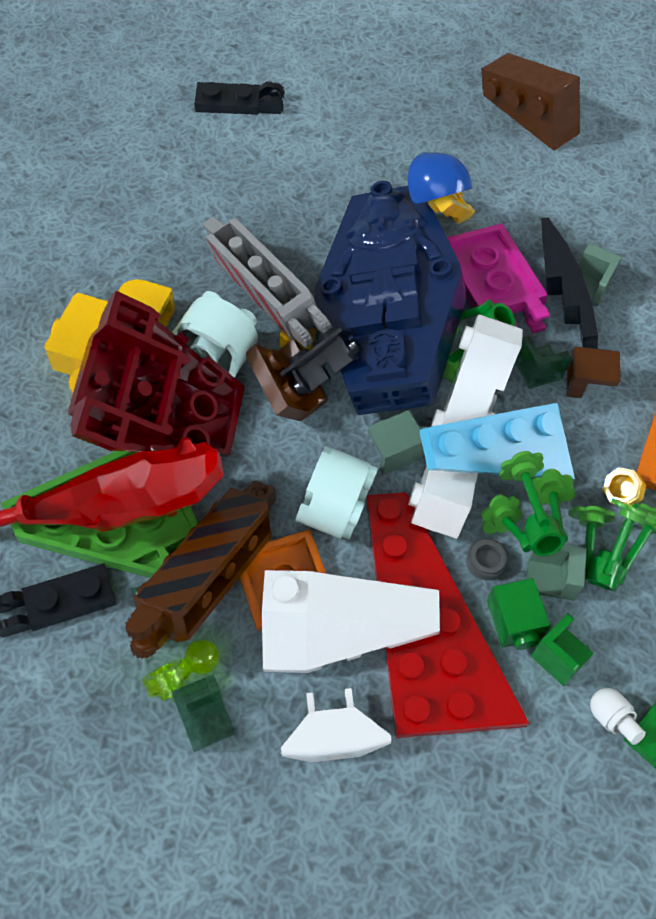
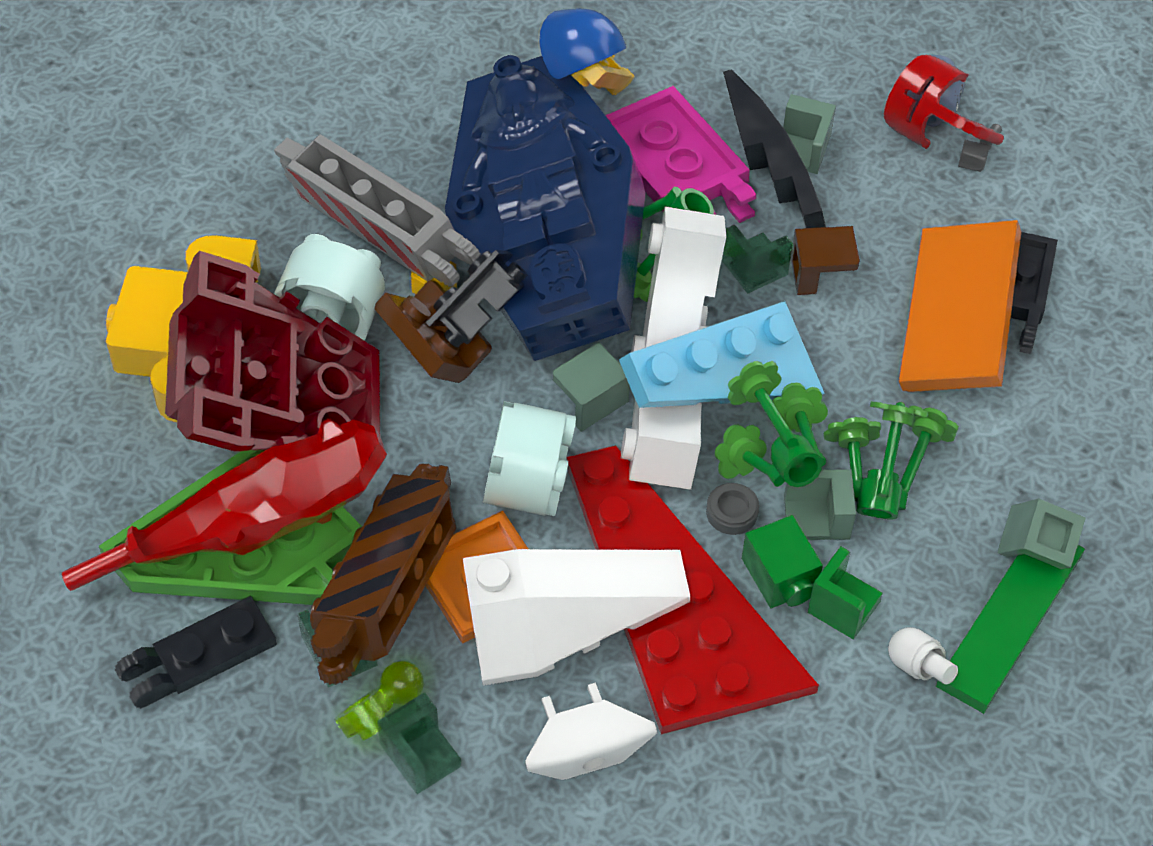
camera: 10 degrees left, 5 degrees down
(625, 486) = (887, 387): yellow tile -> none

